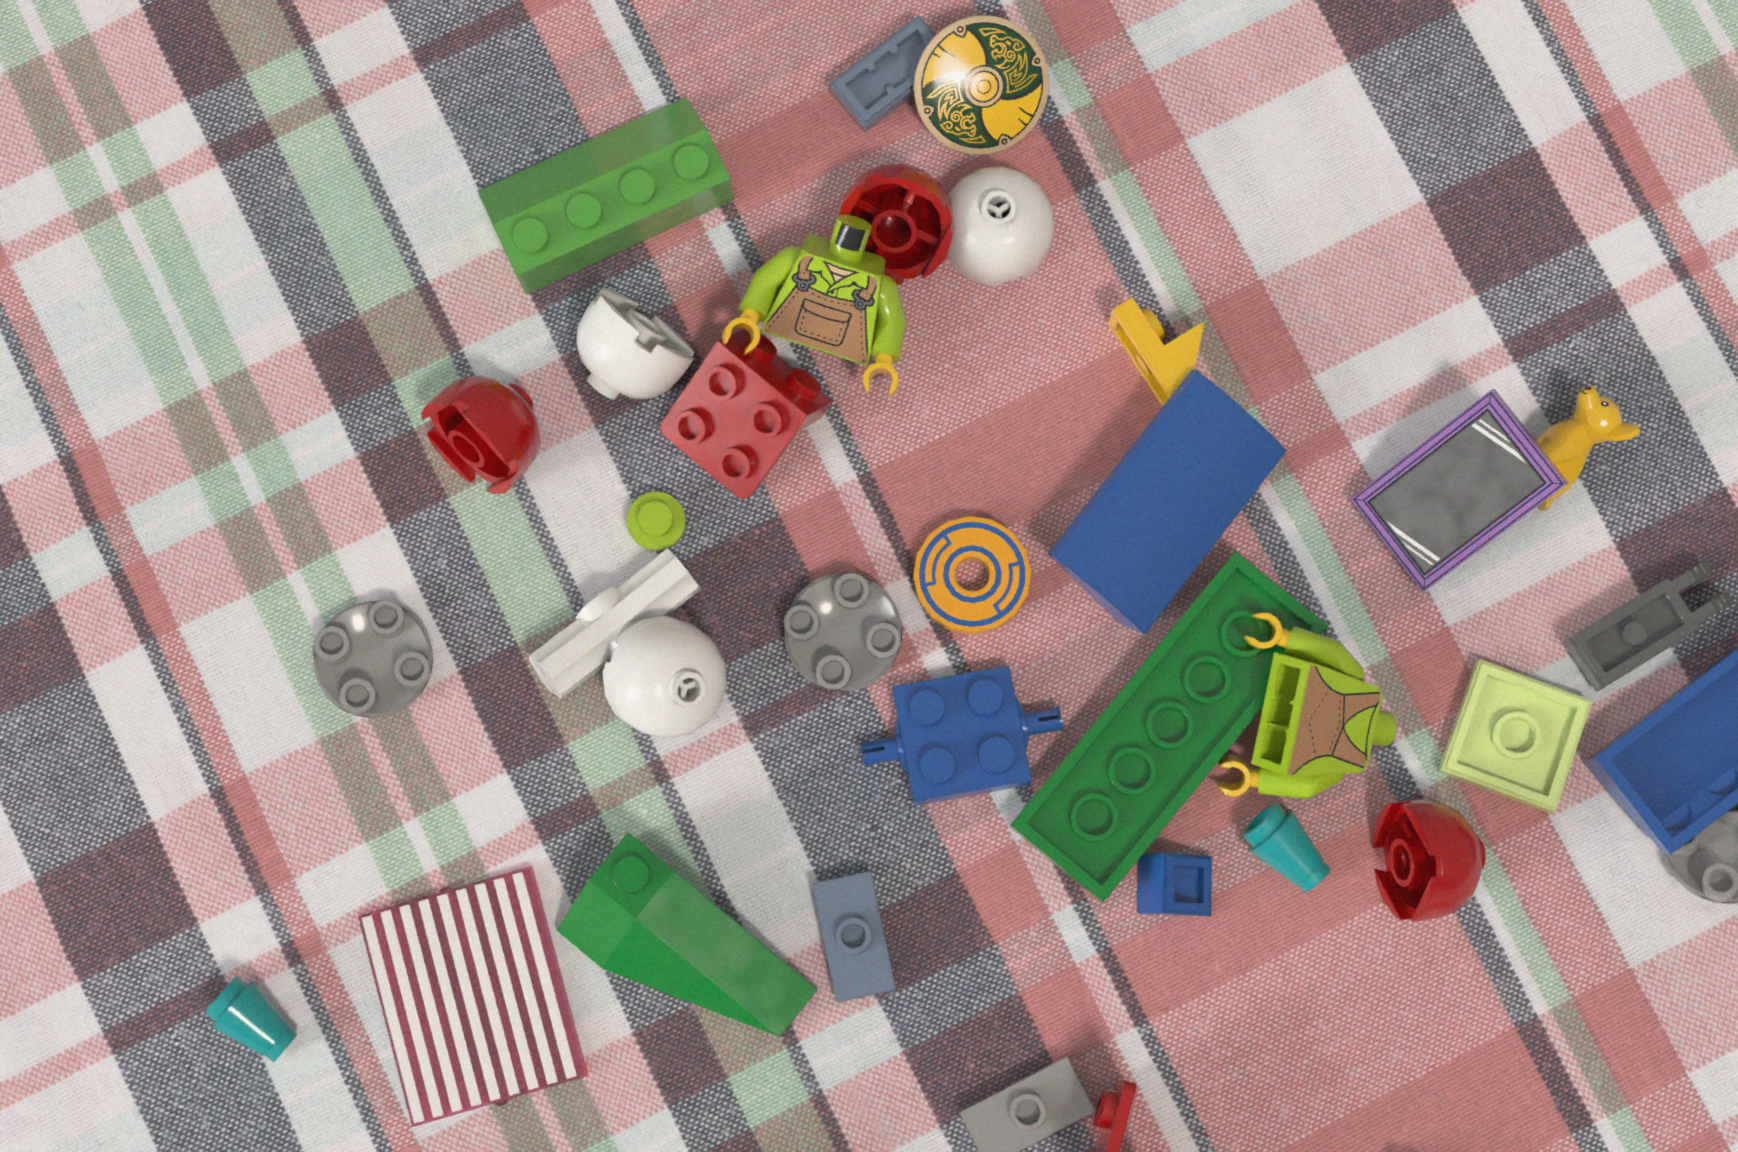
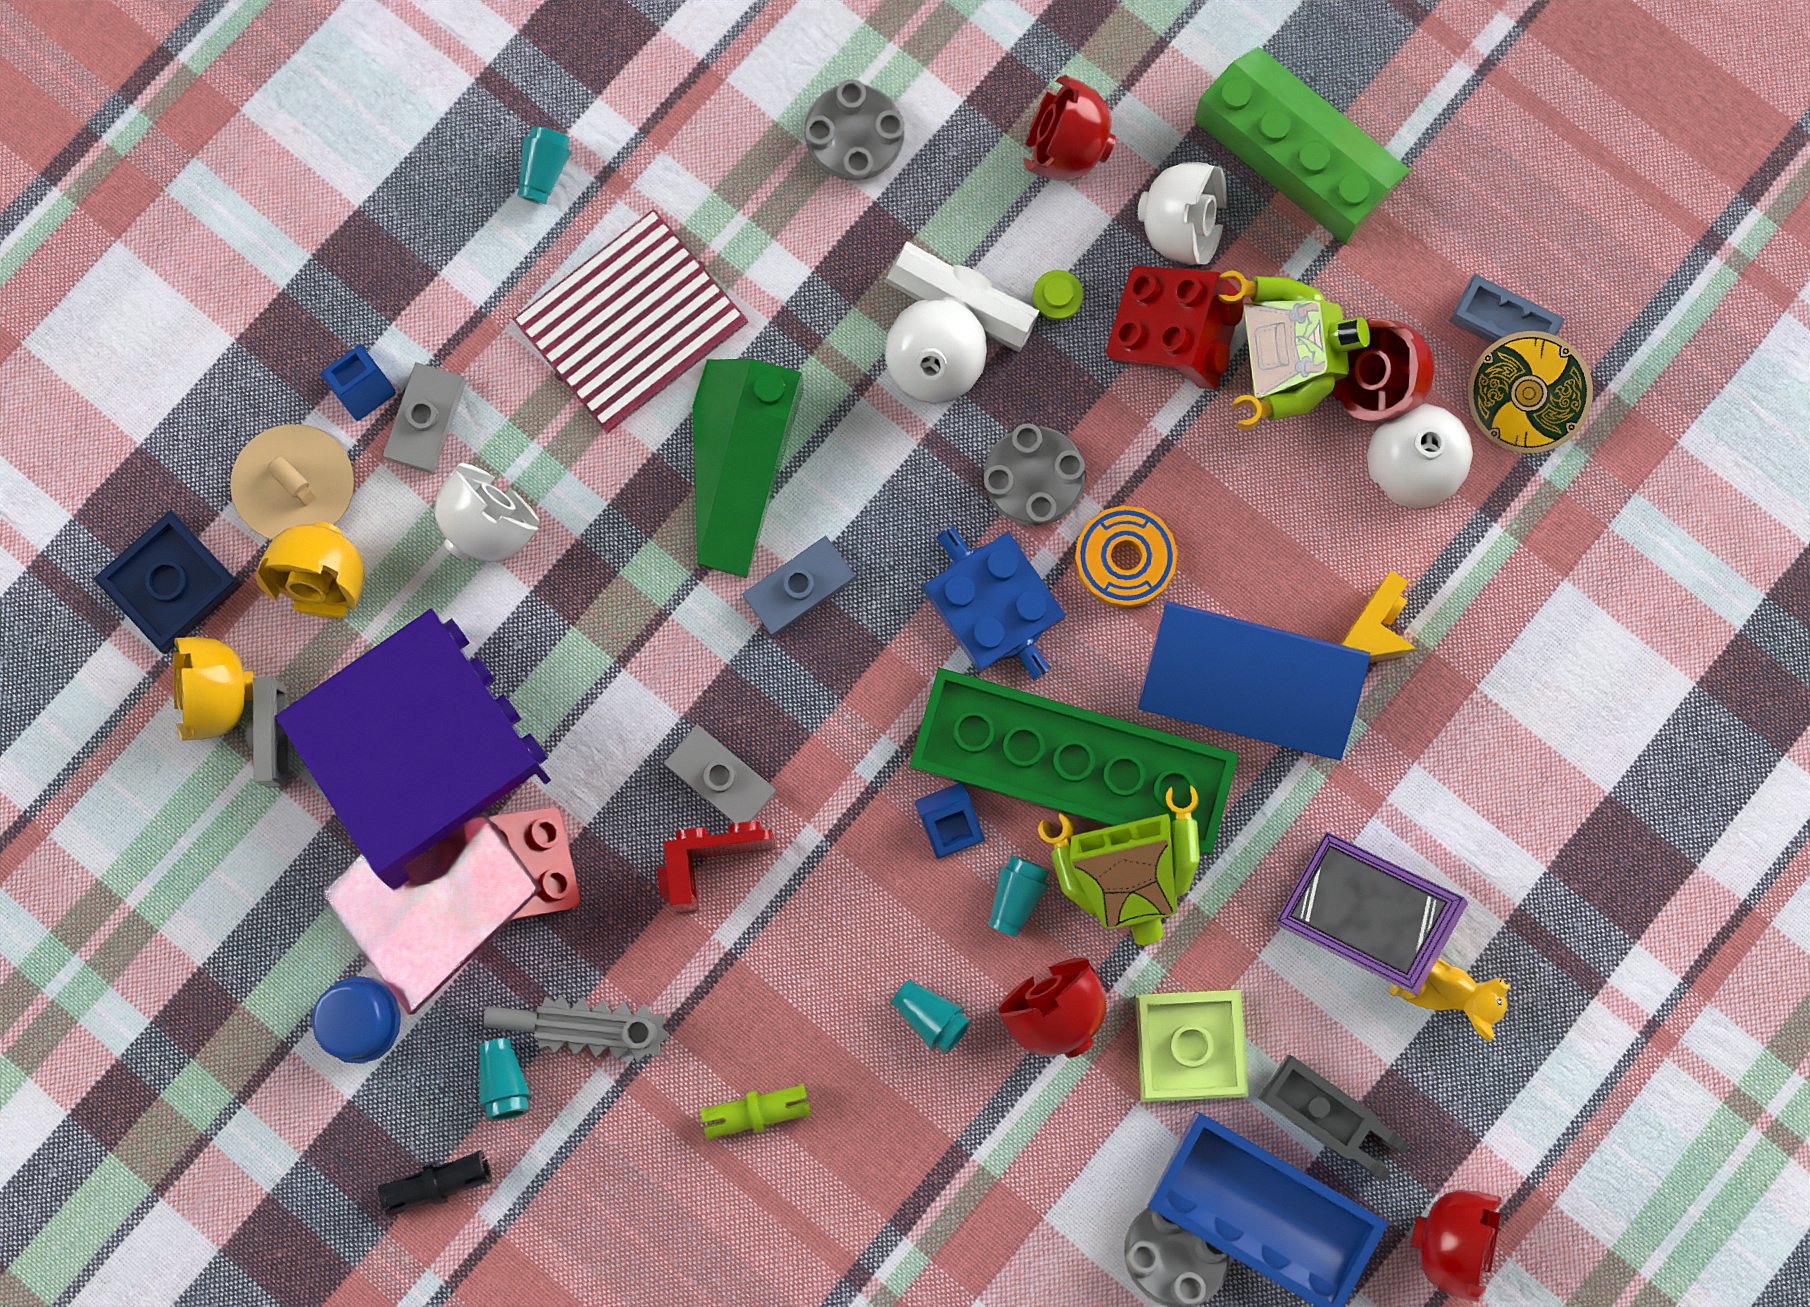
camera: 65 degrees right, 0 degrees up
(1378, 994) = (931, 1016): none -> teal cone

